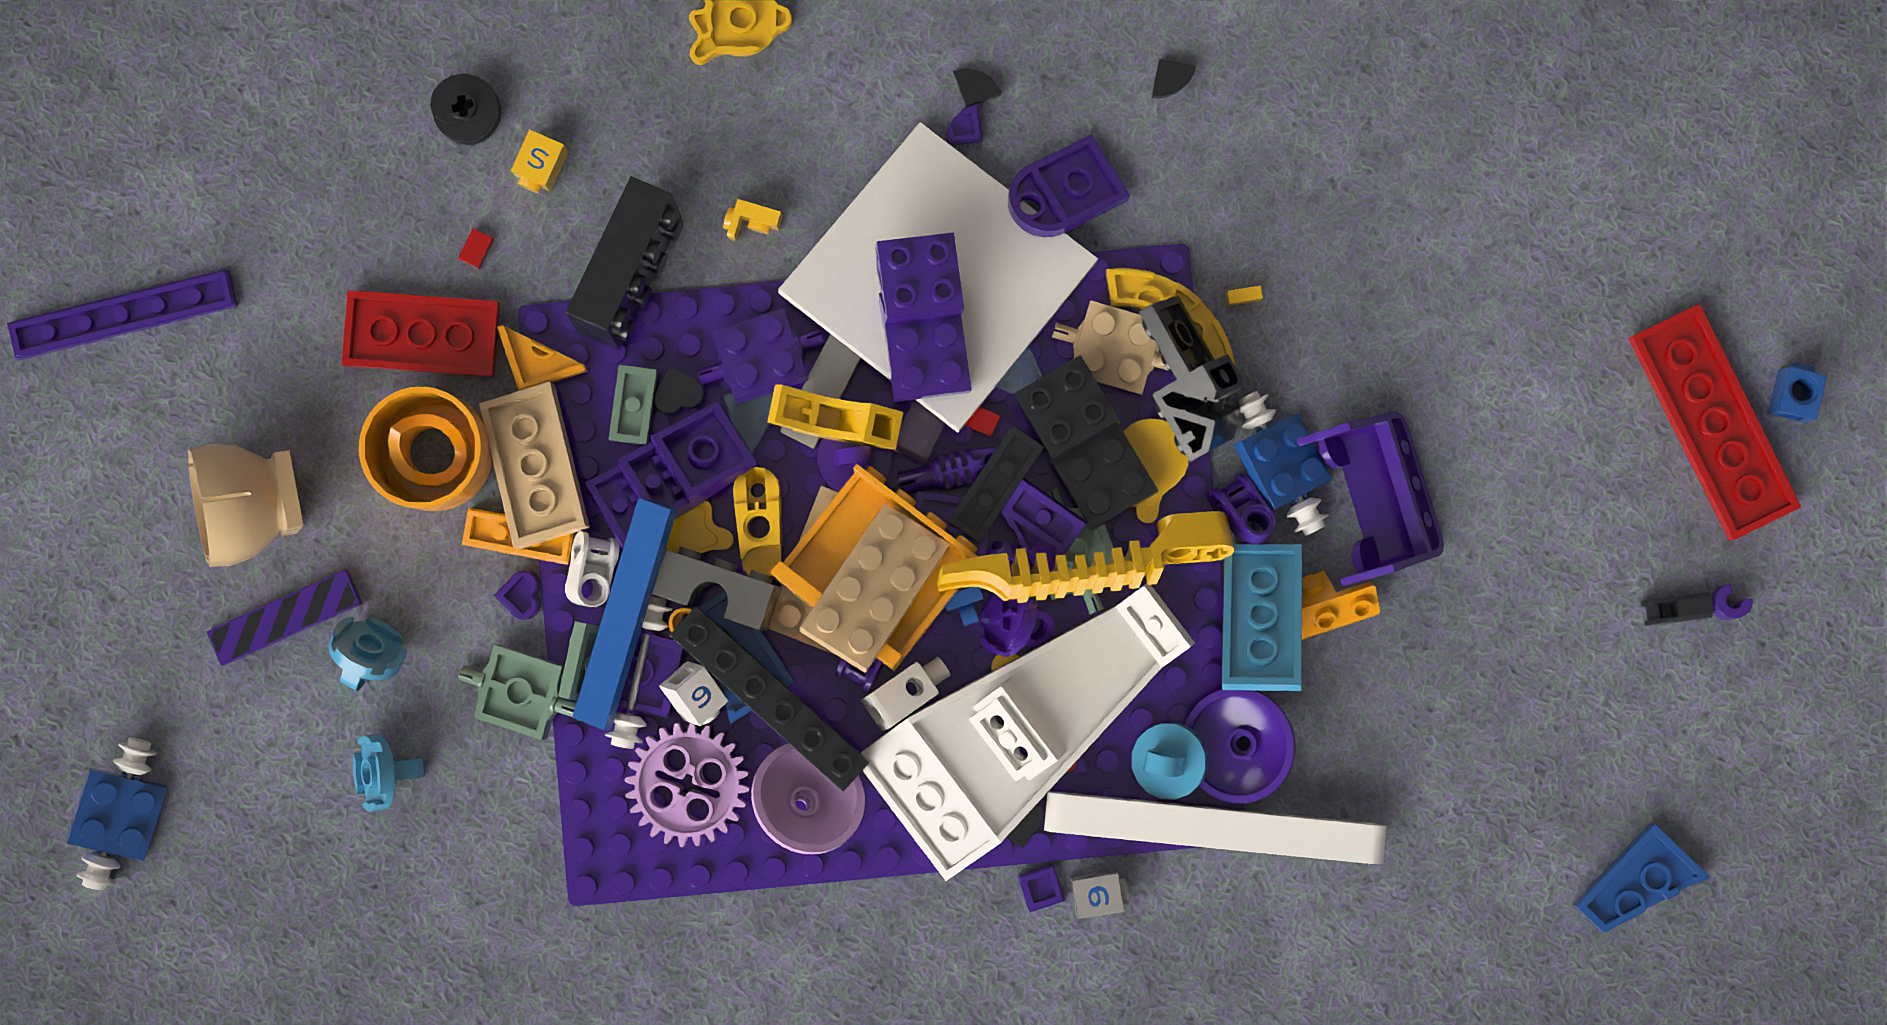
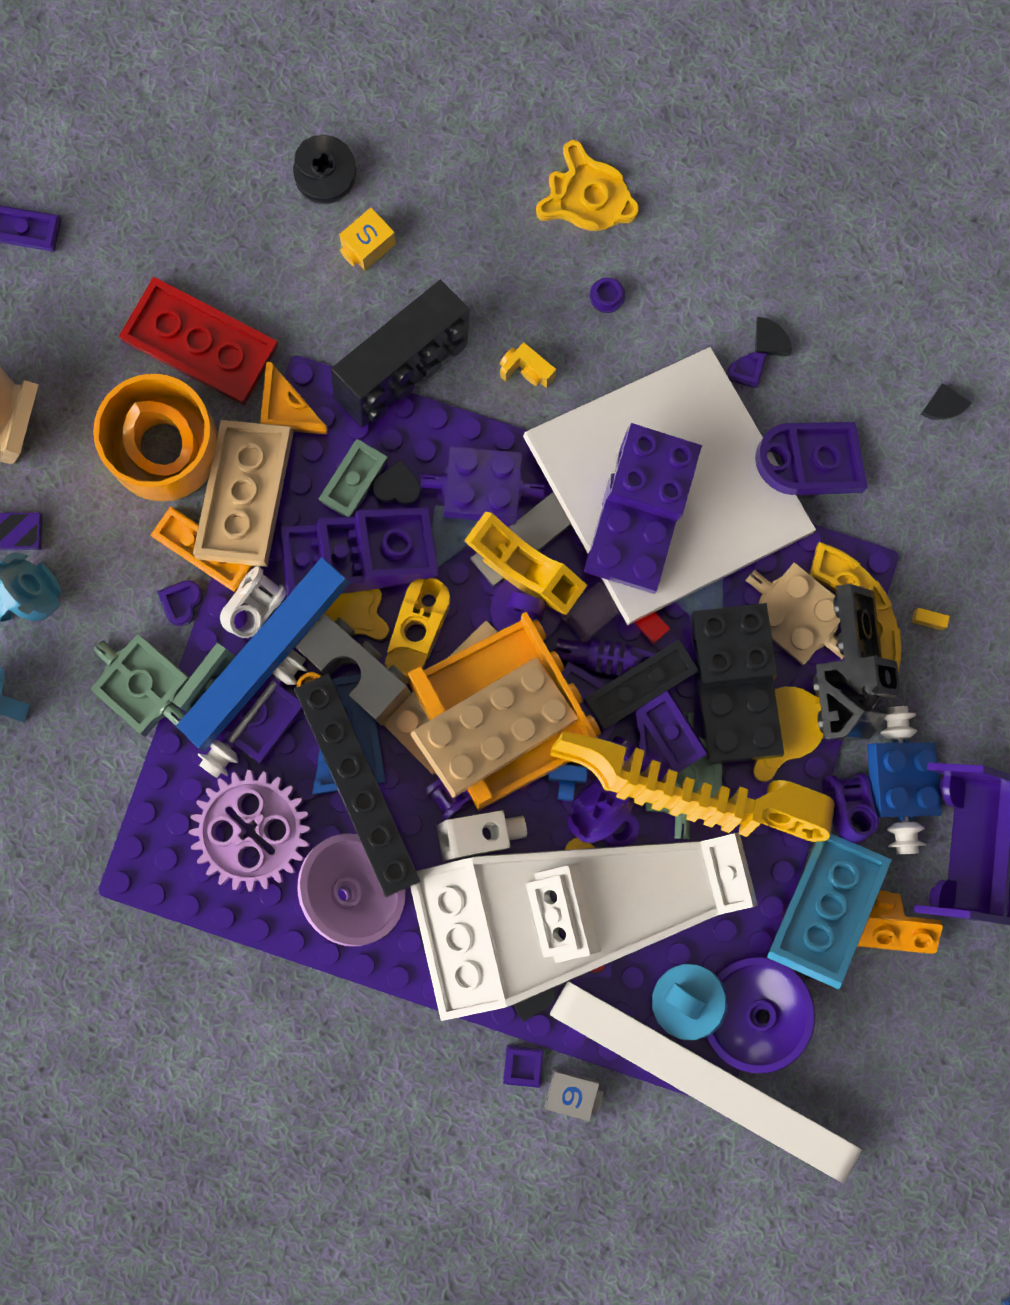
camera: 20 degrees right, 5 degrees down
(476, 248) = (279, 290): red piece -> none
(694, 694) = (292, 752): white brick -> none
(797, 113) = (607, 295): none -> dark purple plate

